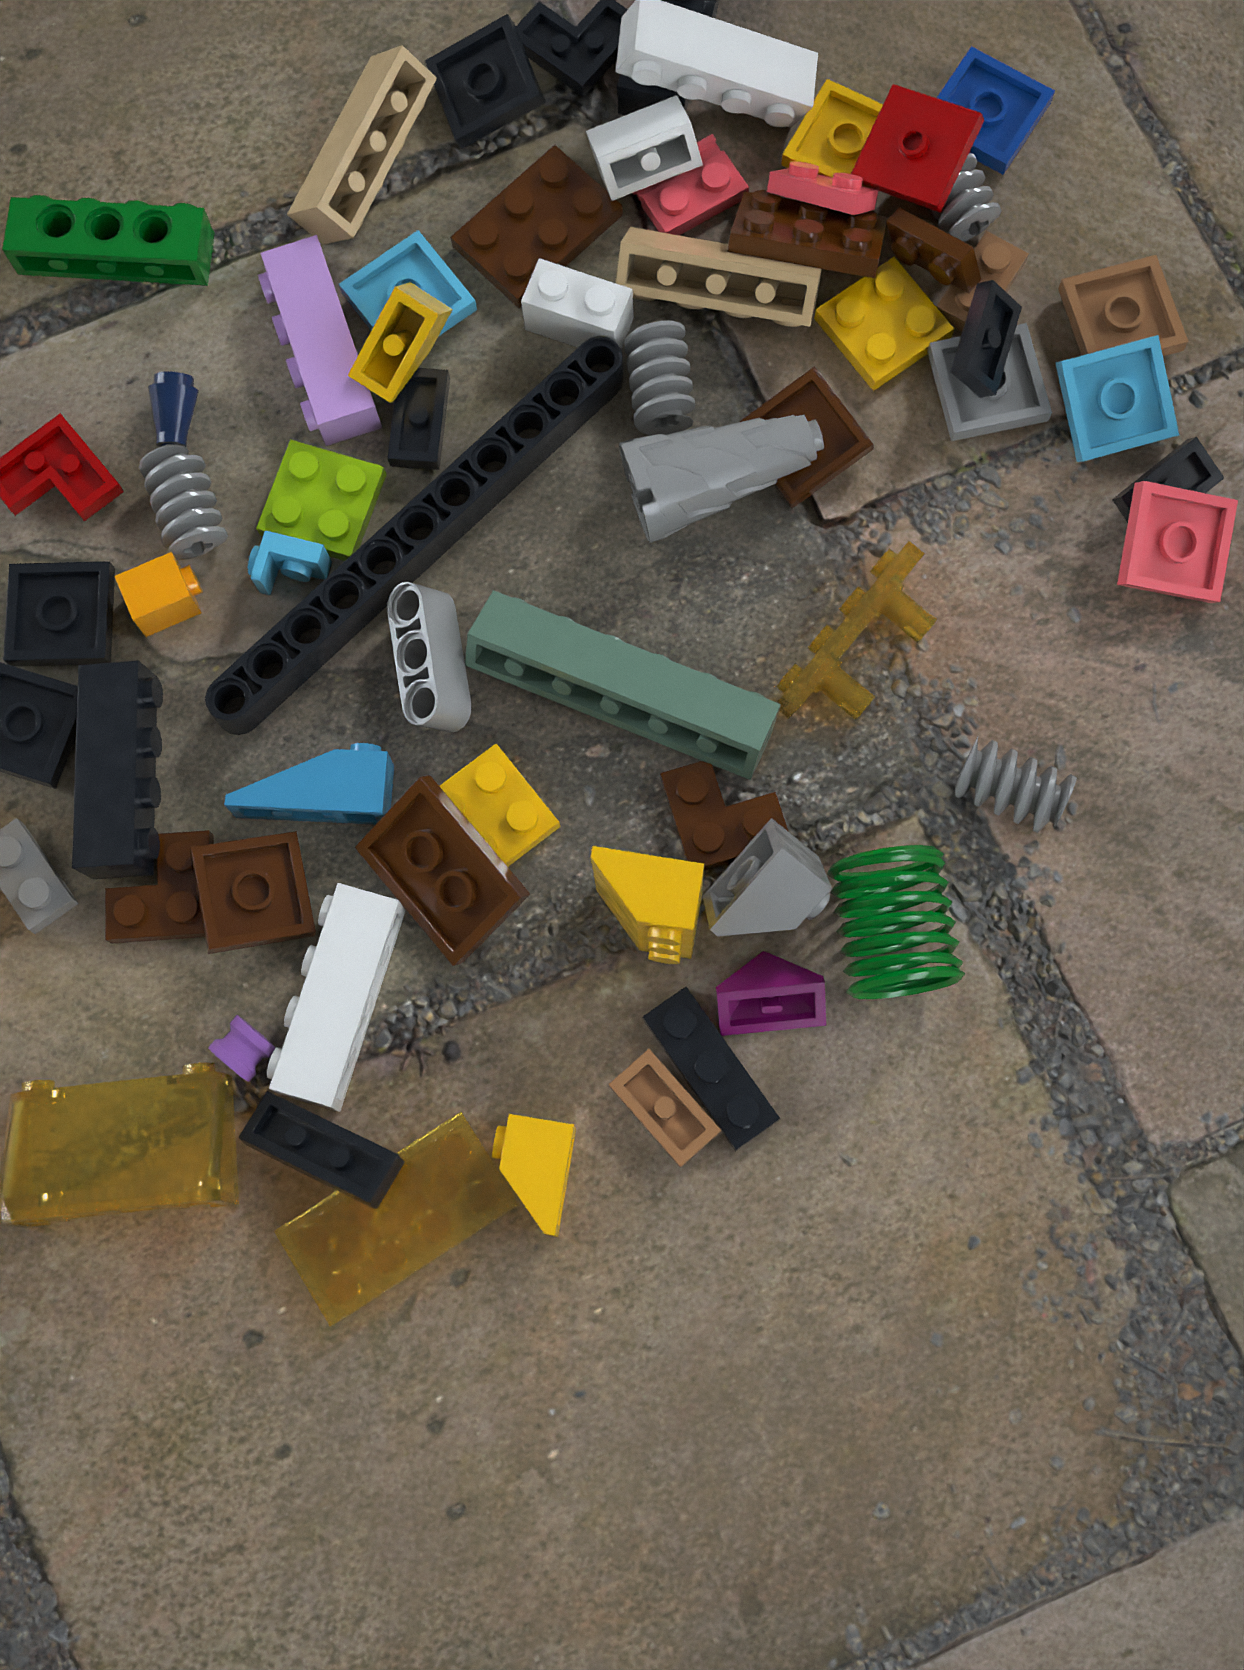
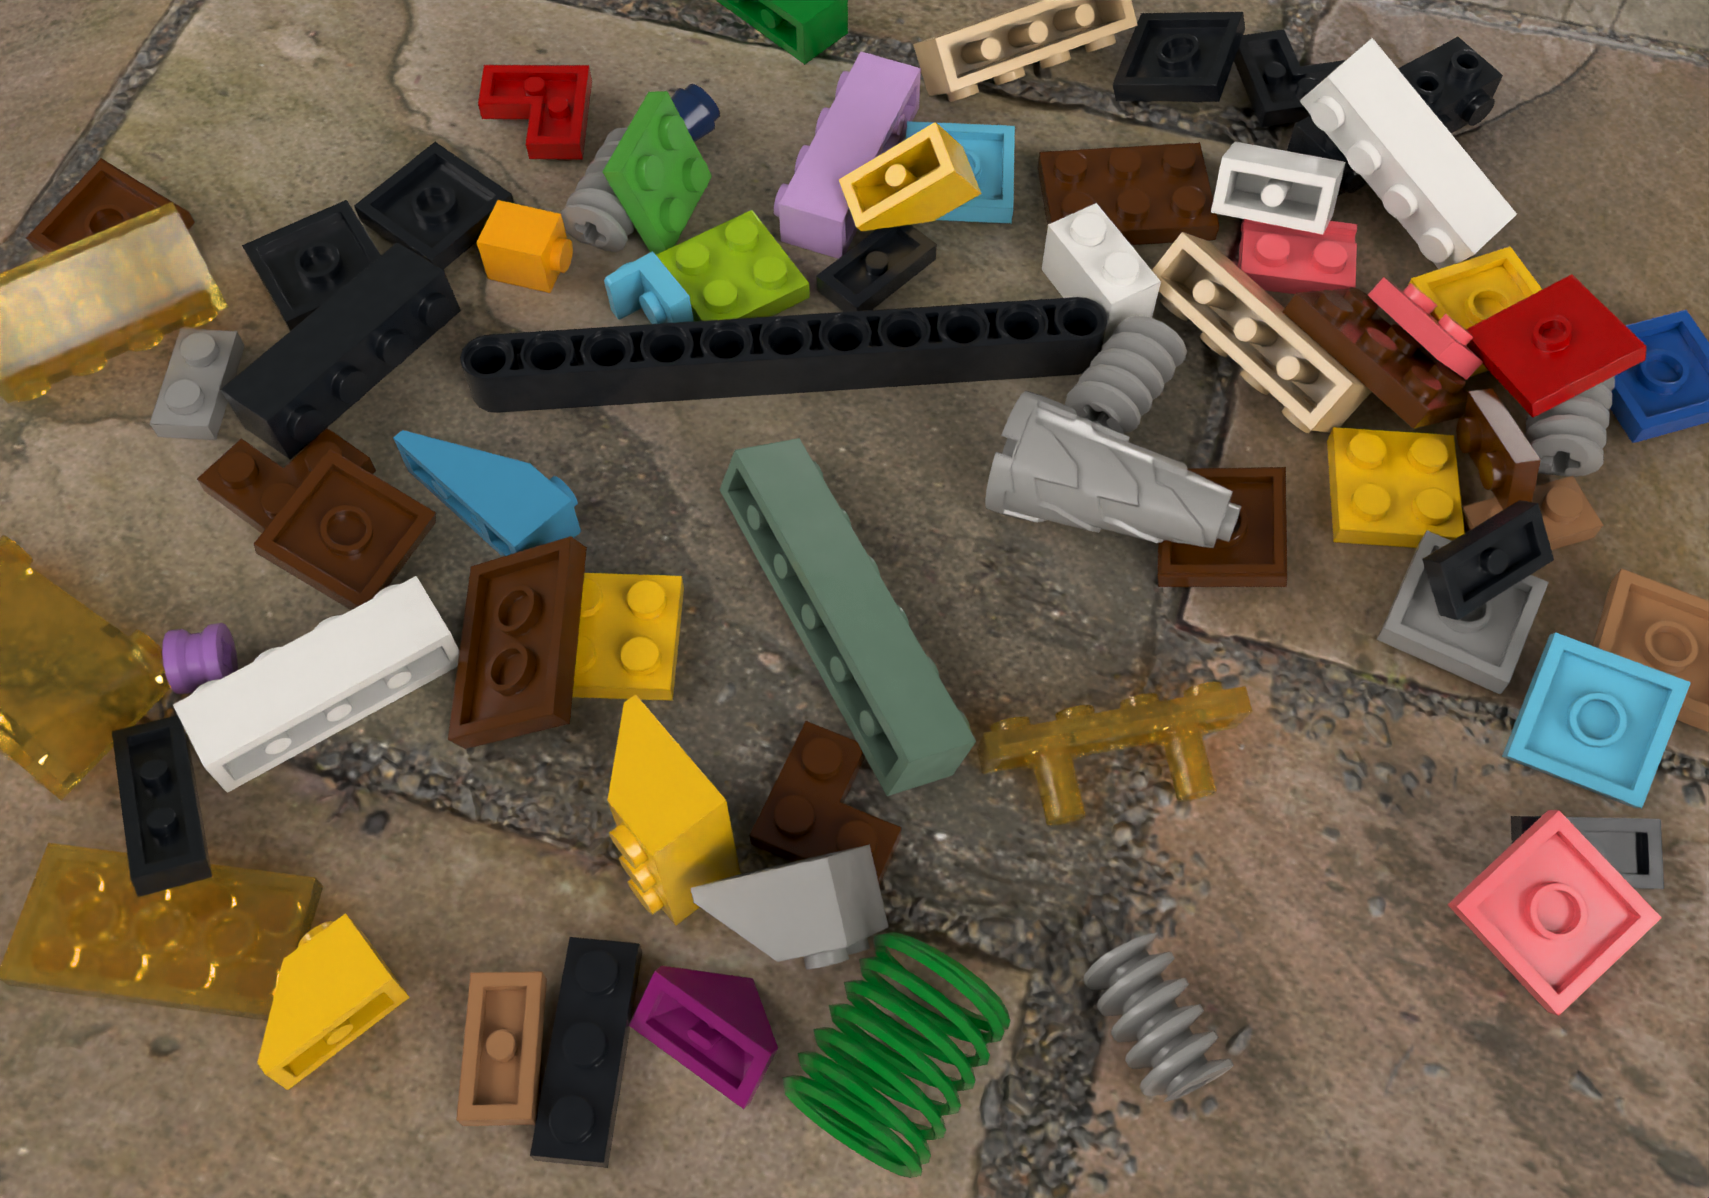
camera: 35 degrees right, 15 degrees down
(210, 465) = (658, 172): none -> bright green plate
(428, 657) = (689, 457): light grey beam -> none

